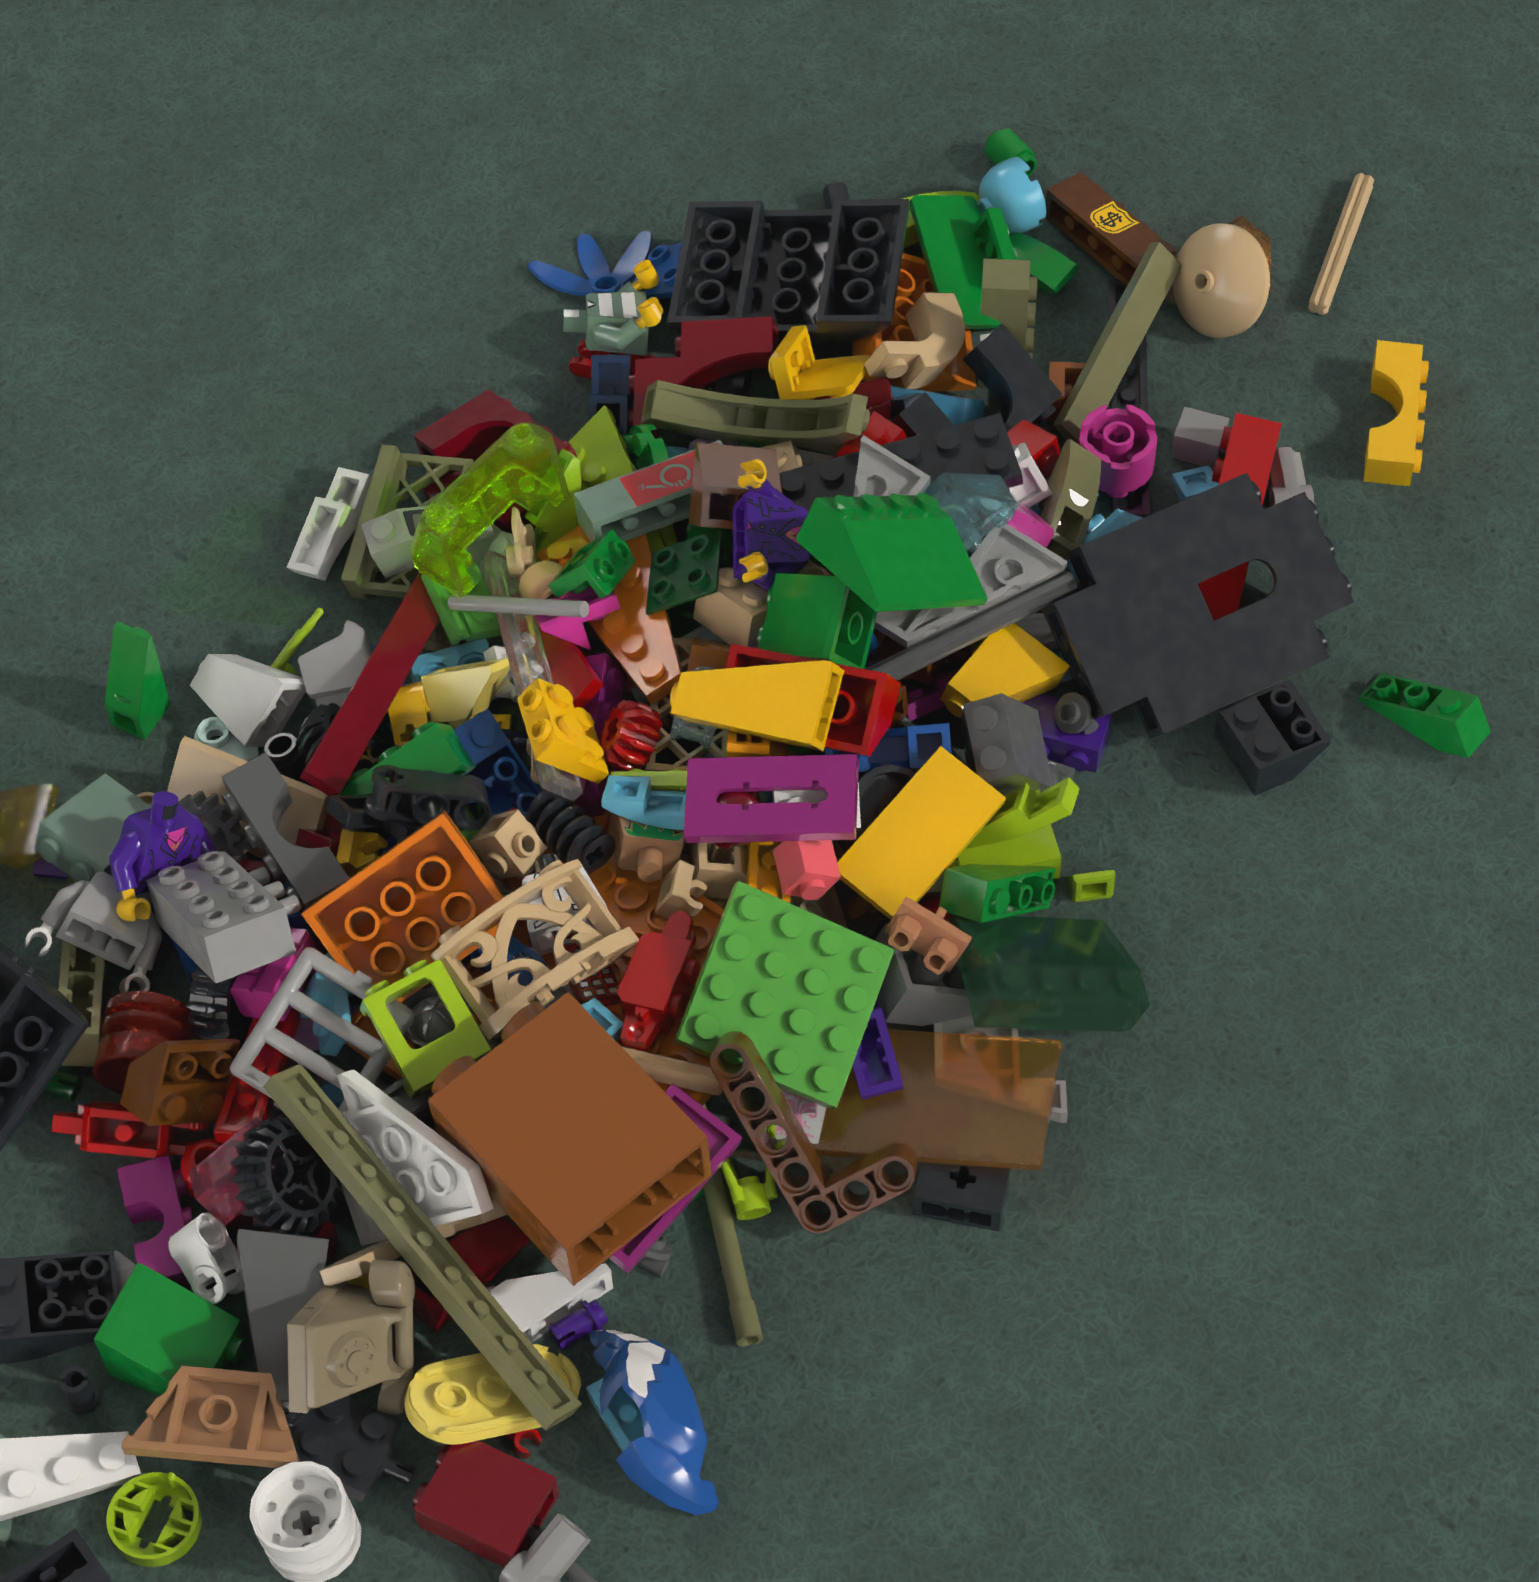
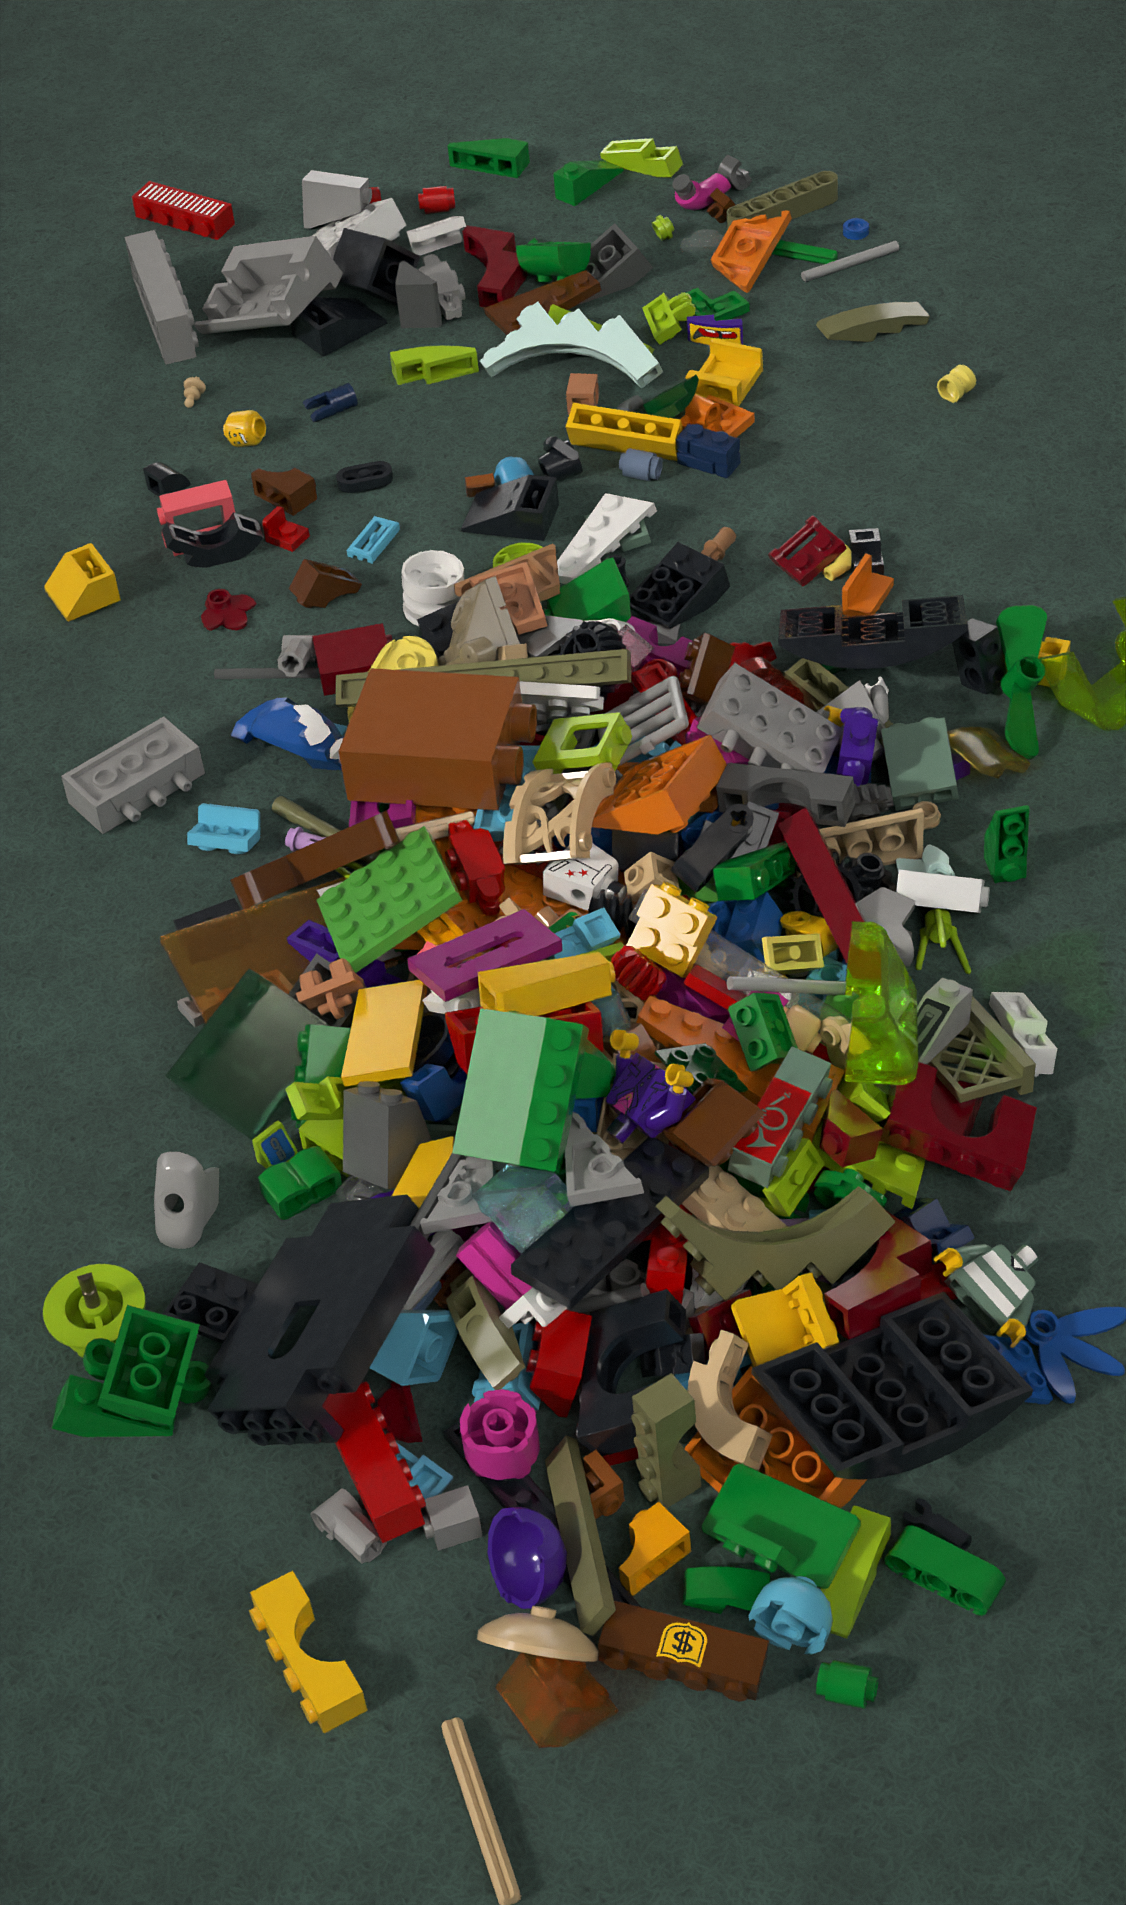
camera: 145 degrees right, 10 degrees down
(254, 1366) = (519, 596): none -> nougat wing
(611, 456) = (848, 1132): none -> dark red slope
(765, 1253) = (299, 839): none -> lavender pin
(844, 1331) = (225, 828): none -> medium azure bracket
(862, 169) = (945, 1568): none -> green beam
(887, 1490) = (133, 775): none -> light grey piece
(1065, 319) = (657, 1545): none -> light orange arch
(1100, 825) = (300, 1182): none -> green brick
(1170, 352) = (525, 1556): none -> dark purple cylinder
(1246, 870) = (184, 1177): none -> light grey piece
(1383, 674) = (148, 1367): none -> green piece
(1385, 796) = (91, 1304): none -> lime piece

